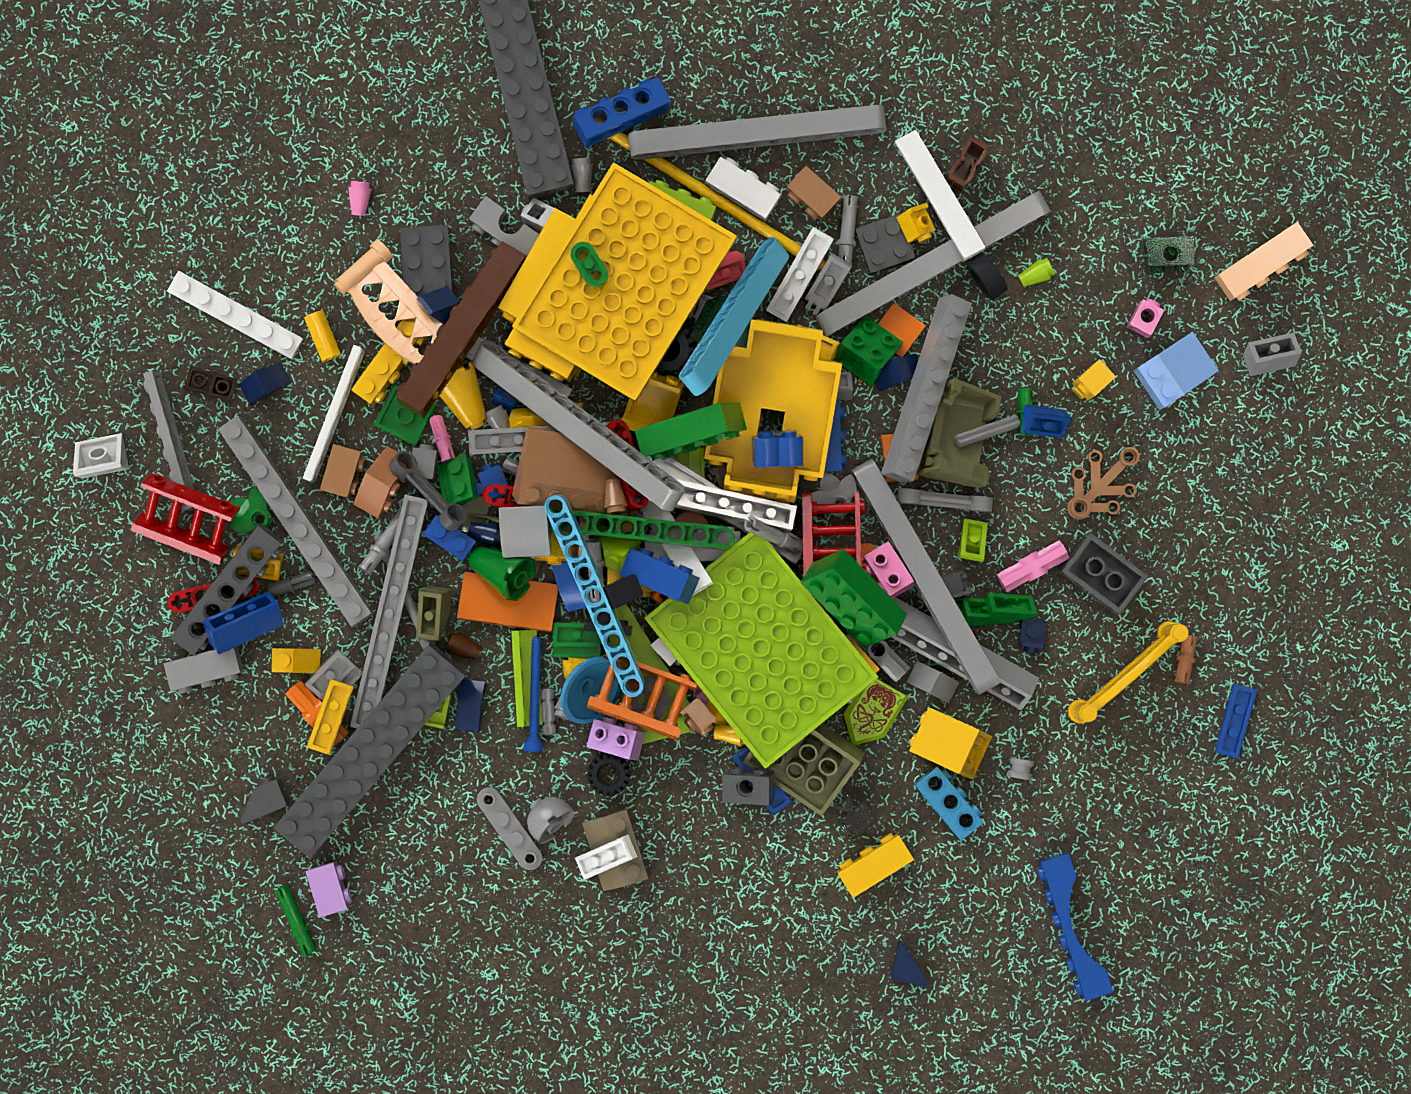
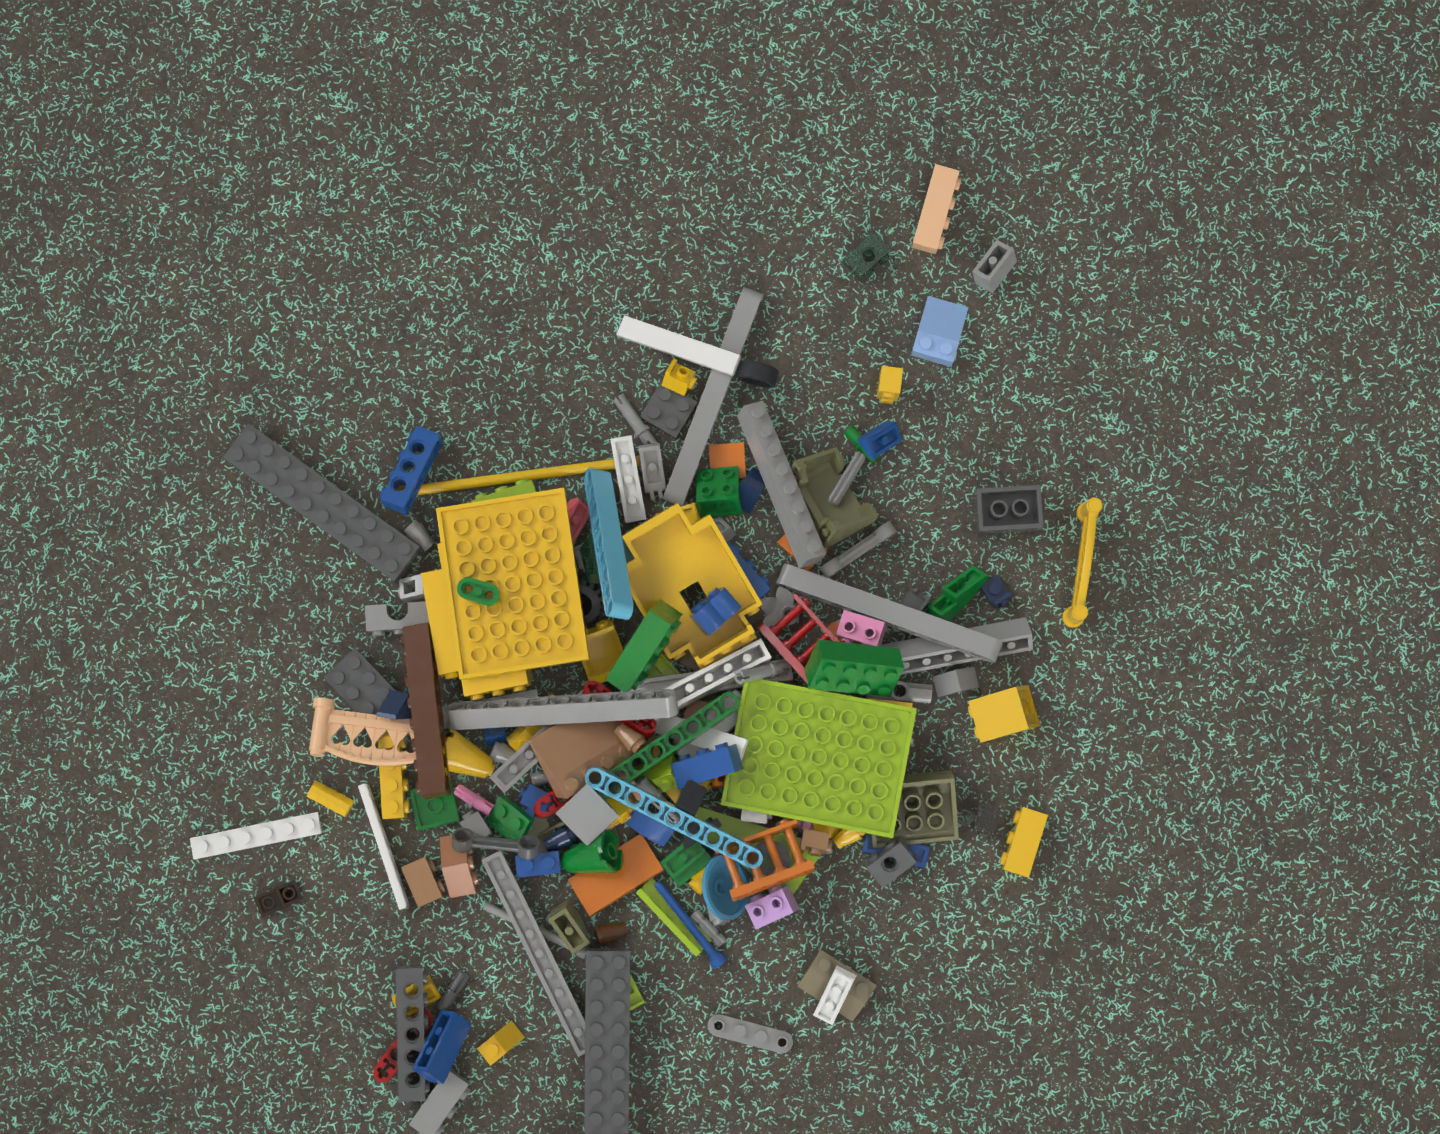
camera: 40 degrees left, 5 degrees down
(100, 456) = (241, 1015): white slope -> none
(168, 431) = (290, 967): light grey plate -> none
(175, 536) = (345, 1026): red fence -> none
(249, 511) = (379, 965): green plate -> none
(264, 382) = (316, 865): dark blue slope -> none
(296, 521) = (419, 944): light grey brick -> none
(310, 706) = (547, 1067): orange piece -> none
(330, 716) = (558, 1061): yellow tile -> none
(337, 668) = (538, 1032): light grey plate -> none
(359, 197) = (275, 680): bright pink cone -> none
(380, 548) = (494, 909): light grey pin -> none
(469, 706) = (650, 970): dark blue slope -> none
(547, 817) = (770, 1002): light grey cylinder -> none
(594, 774) = (797, 945): black tyre -> none
(743, 188) = (539, 452): white brick -> none
(757, 132) = (516, 407): light grey beam -> none
(812, 194) = (590, 417): medium nougat brick -> none
(873, 712) = (933, 737): lime tile -> none
(905, 968) = (1106, 895): dark blue slope -> none
(949, 815) = (1027, 760): dark azure brick -> none
(969, 160) = (679, 312): reddish brown brick -> none
(973, 540) = (900, 561): lime slope -> none
(1020, 768) = (1066, 690): light grey wheel -> none
(1032, 566) = (956, 544): bright pink piece -> none
(1037, 272) = (789, 343): lime cone -> none
(1059, 878) = (1157, 743): blue arch -> none
(1100, 486) = (954, 451): medium nougat plant -> none
(1141, 327) = (888, 321): bright pink brick -> none
(1186, 660) = (1114, 521): nougat pin -> none
(1235, 721) = (1183, 534): blue tile -> none

